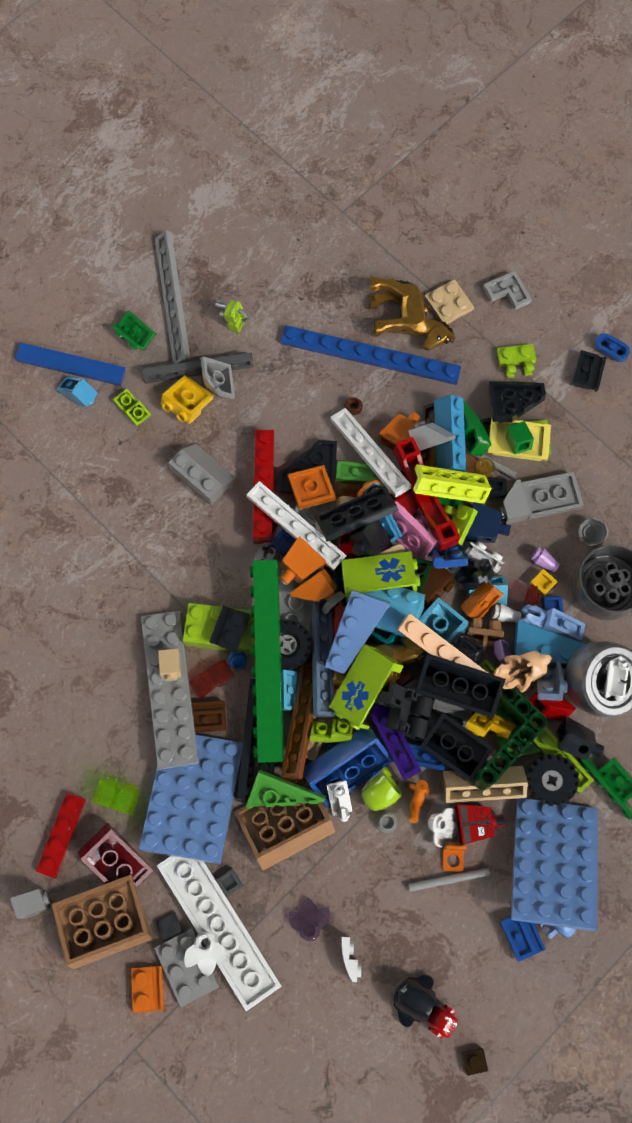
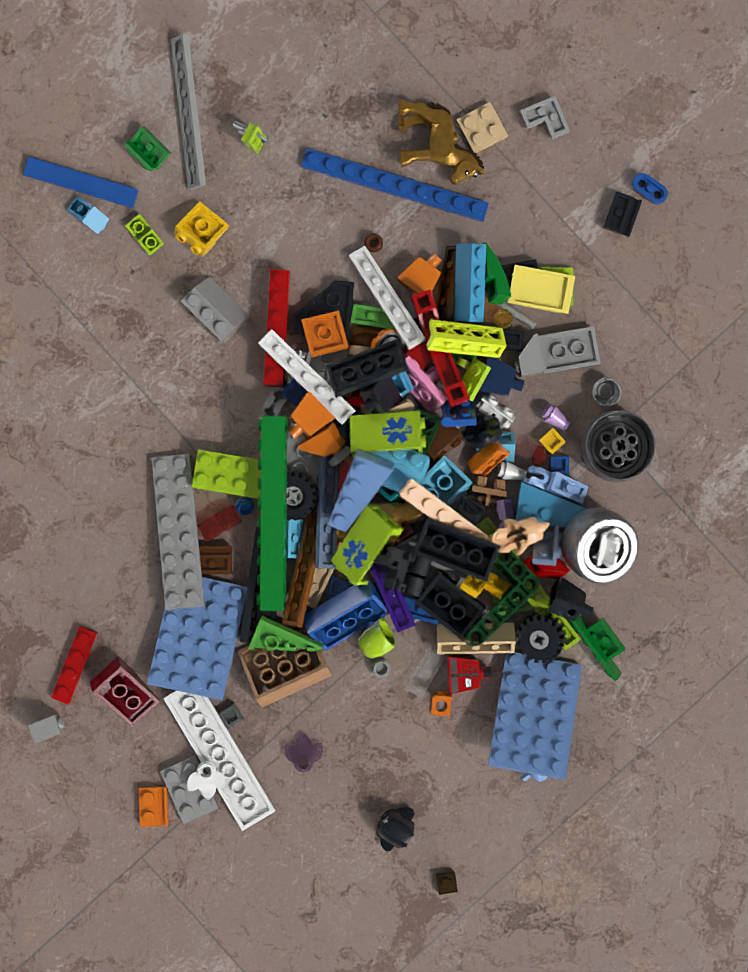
camera: 10 degrees right, 15 degrees up
(101, 922) = (111, 746): medium nougat slope -> none
(116, 796) = (126, 632): clear neon green piece -> none
(169, 926) = (174, 753): black slope -> none
(170, 664) = (178, 511): tan brick -> none
(193, 368) = (206, 193): dark grey plate -> none
(218, 377) = (234, 209): light grey slope -> none
(230, 628) = (237, 479): black plate -> none
(327, 732) = (331, 583): lime slope -> none
(339, 800) = (337, 647): white hinge -> none
(351, 965) = (339, 794): white slope -> none
(420, 790) = (410, 649): orange piece -> none
(430, 435) = (448, 286): light grey slope -> none
(442, 1021) = (419, 848): red head -> none
(443, 826) = (433, 675): white plate -> none
(448, 879) = (435, 722): light grey bar -> none
(514, 399) = (539, 245): black plate -> none
(517, 355) = (548, 193): lime plate -> none
(519, 437) = (540, 290): green brick -> none
(522, 938) = (499, 780): blue plate -> none

